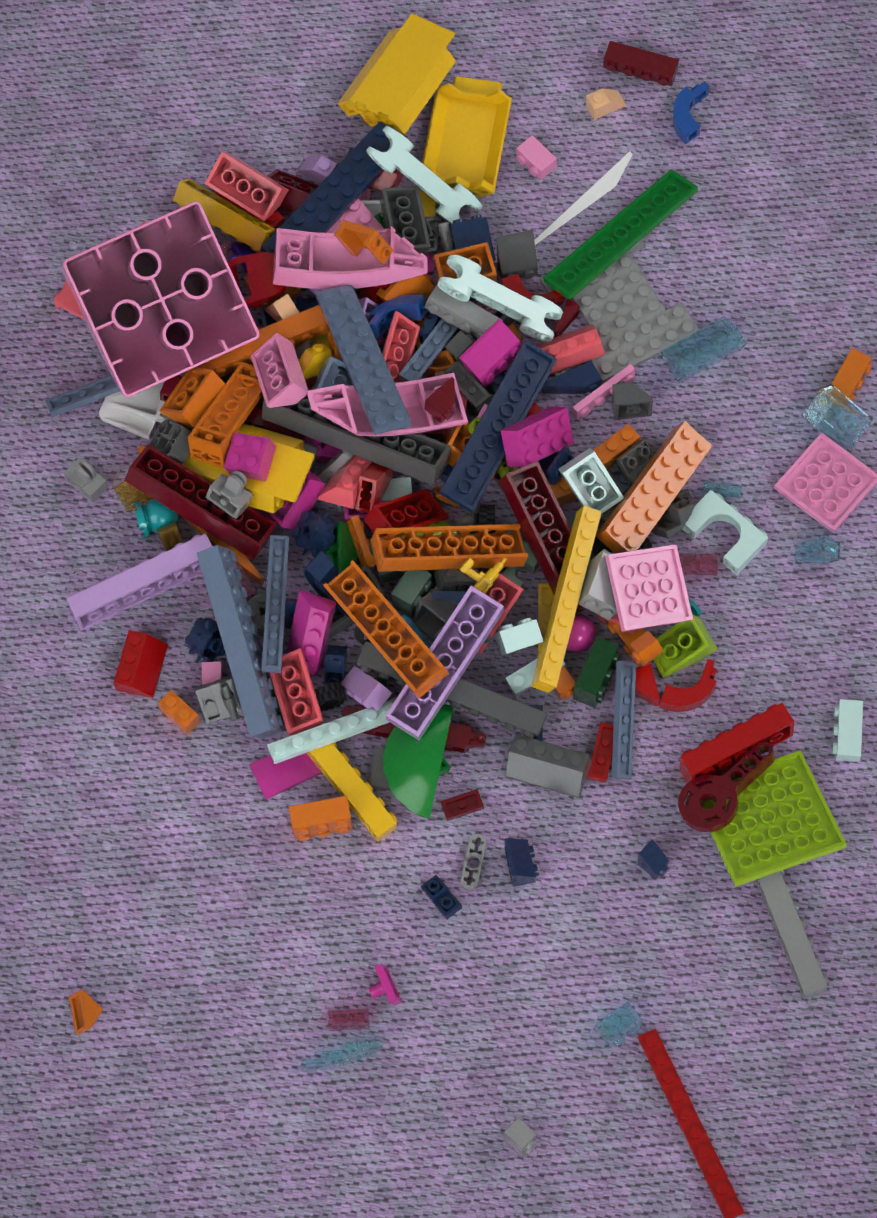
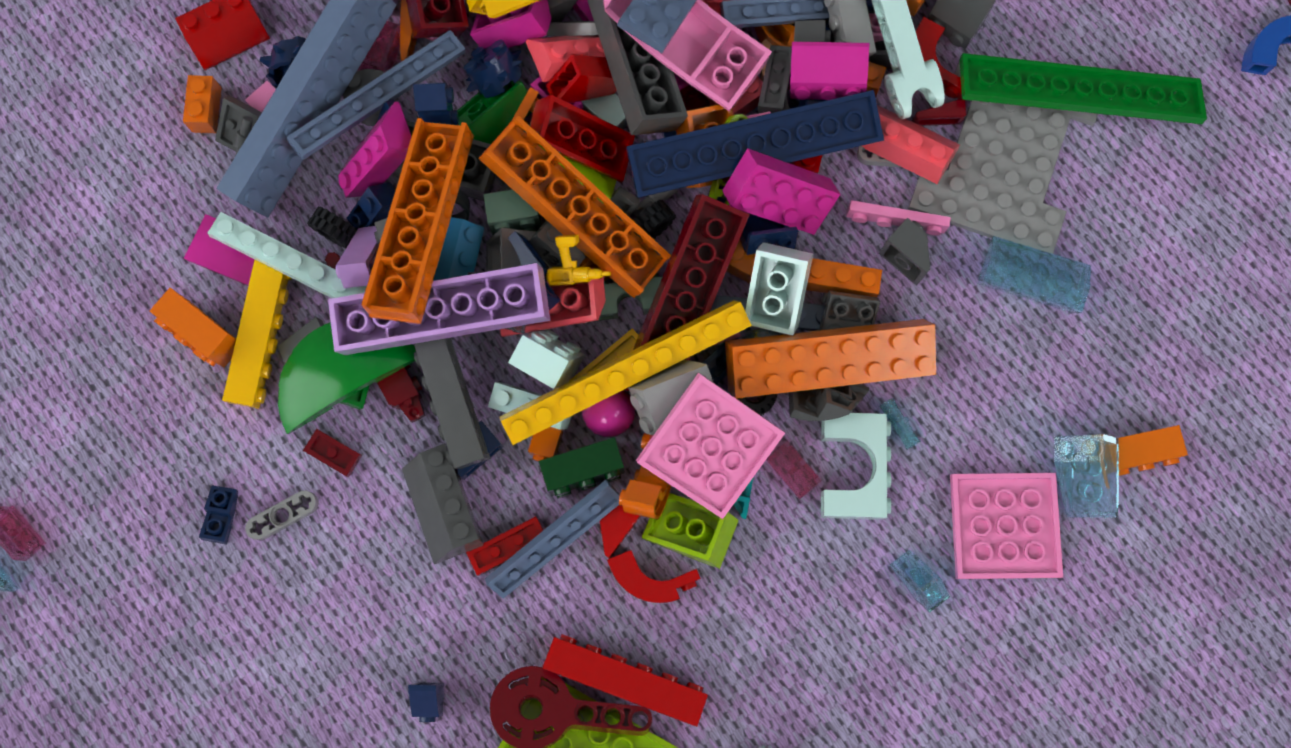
camera: 45 degrees right, 10 degrees up
(296, 694) = (303, 193): coral slope -> none
(385, 986) = (77, 540): dark pink tile -> none
(442, 401) = (726, 64): dark red slope -> none
(520, 862) = (312, 563): dark blue slope -> none
(575, 381) = (883, 180): dark blue slope -> none
(599, 189) = (1116, 31): white sticker -> none

